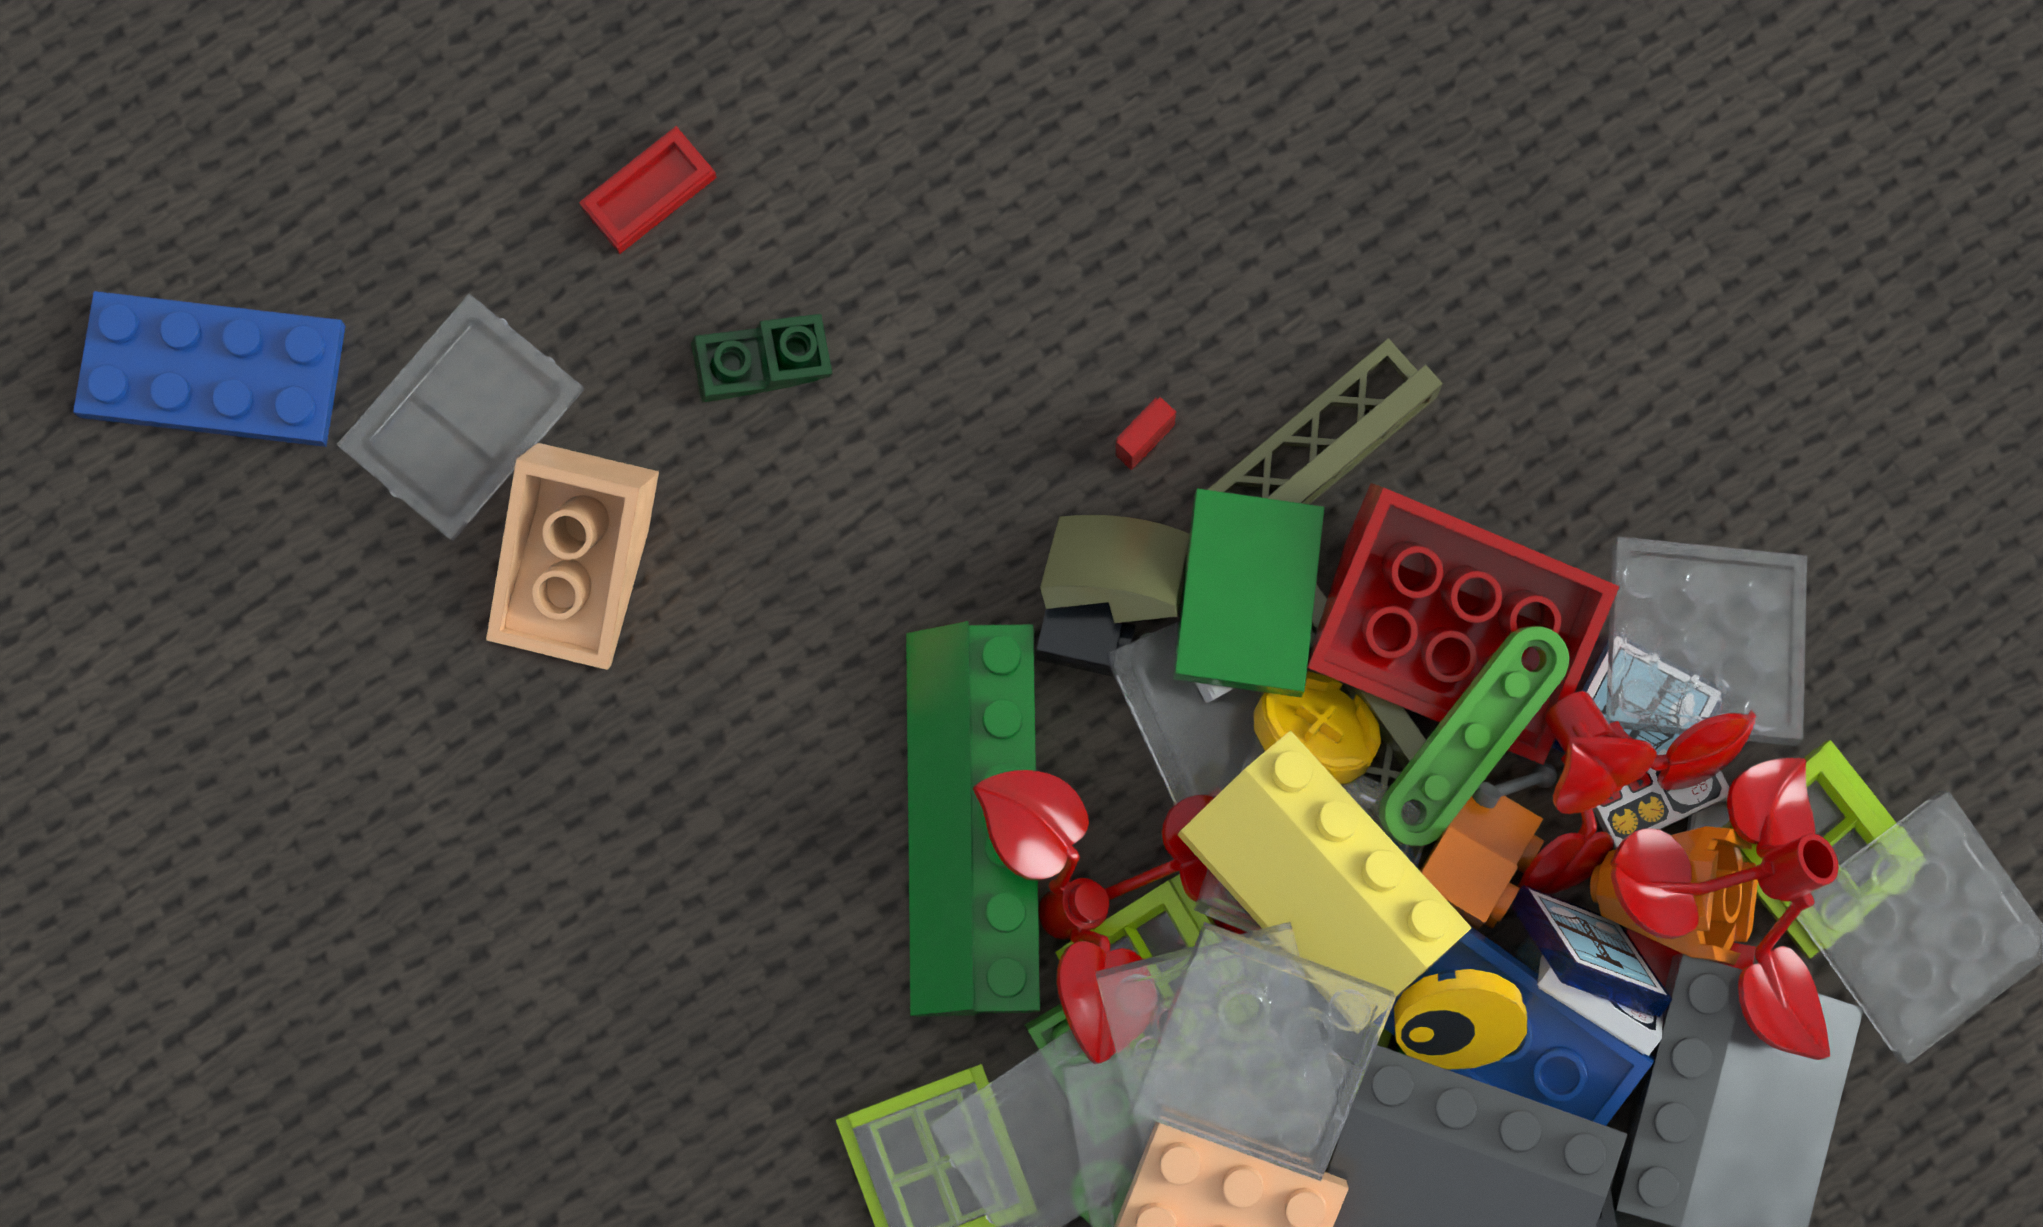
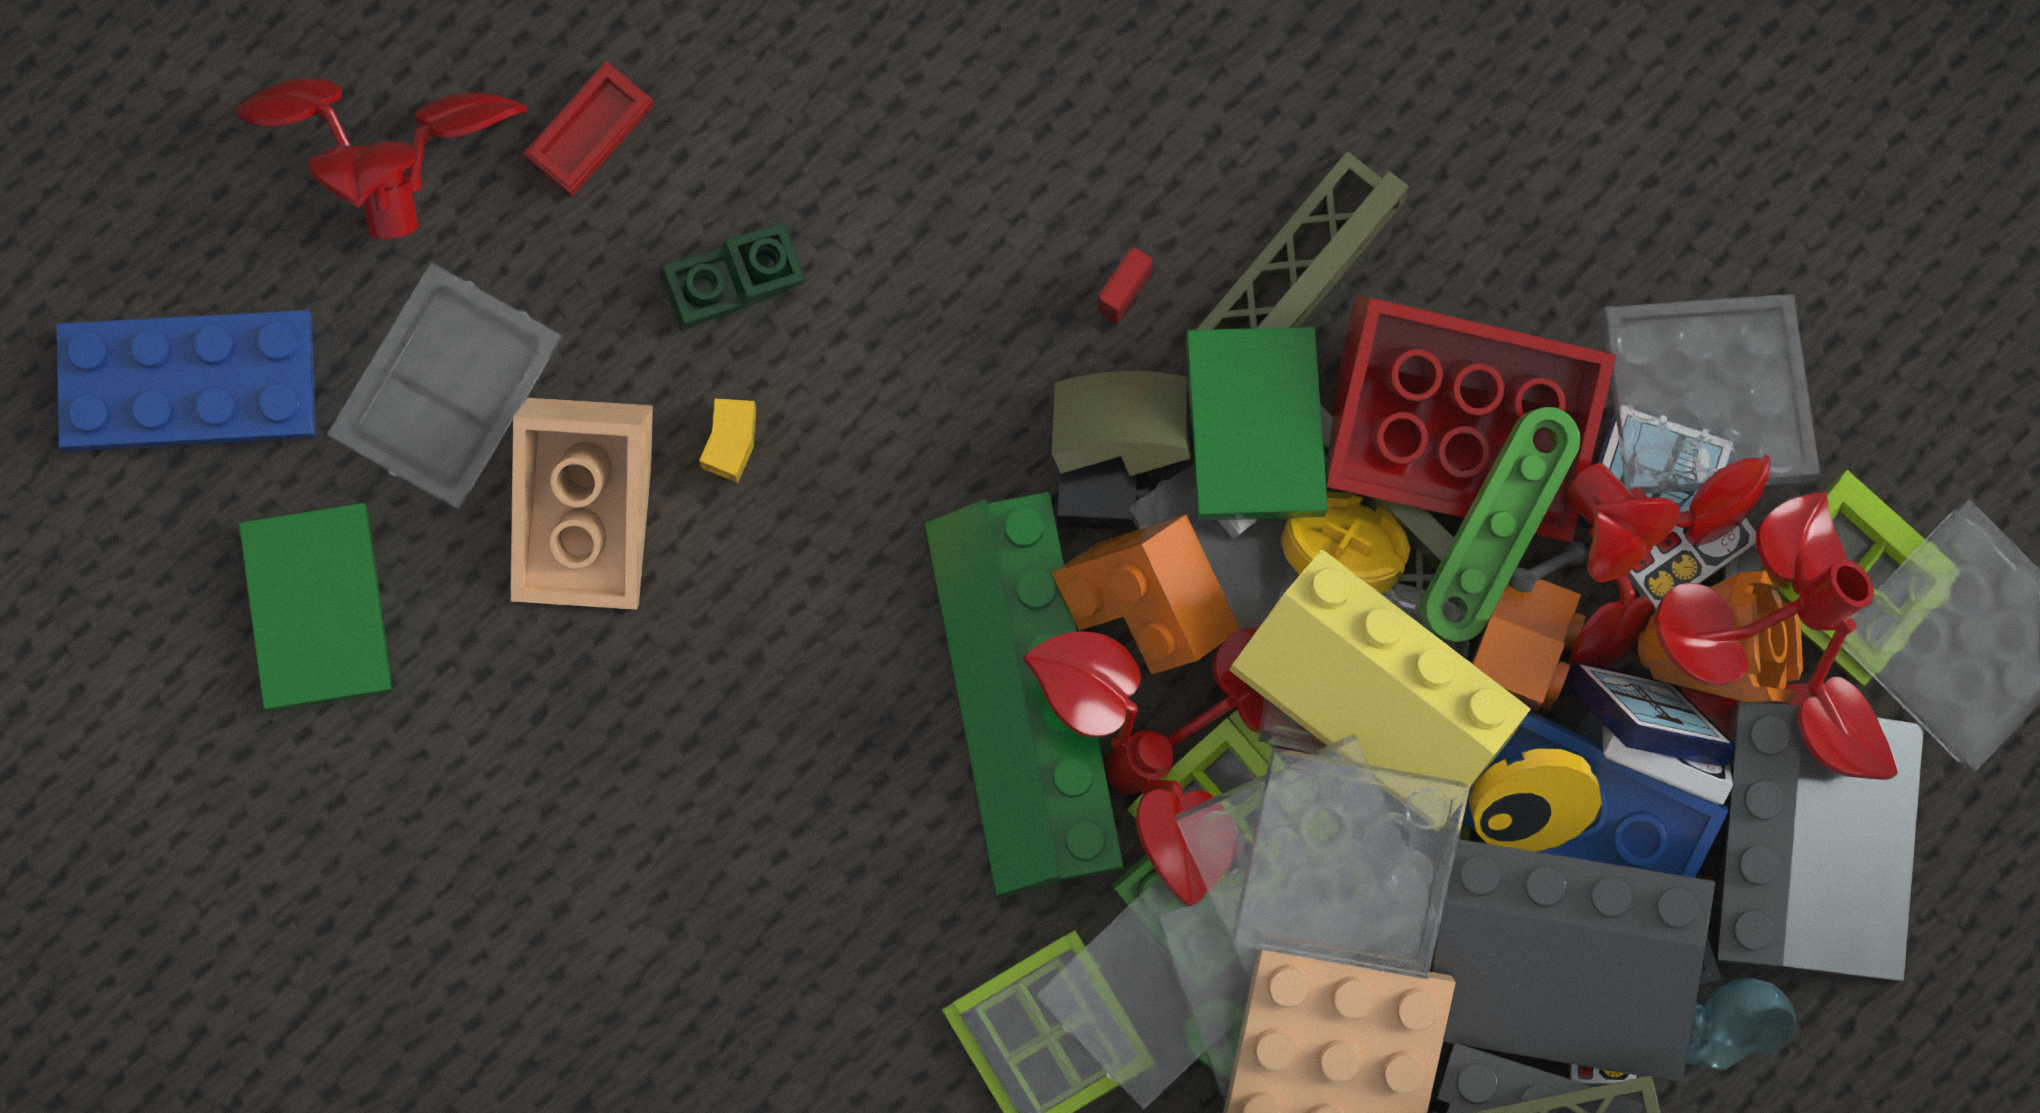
camera: 10 degrees left, 0 degrees up
(294, 613) = (316, 607): none -> green tile
(430, 191) = (374, 171): none -> red plant
(730, 517) = (730, 438): none -> yellow piece
(1124, 738) = (1159, 587): none -> orange brick

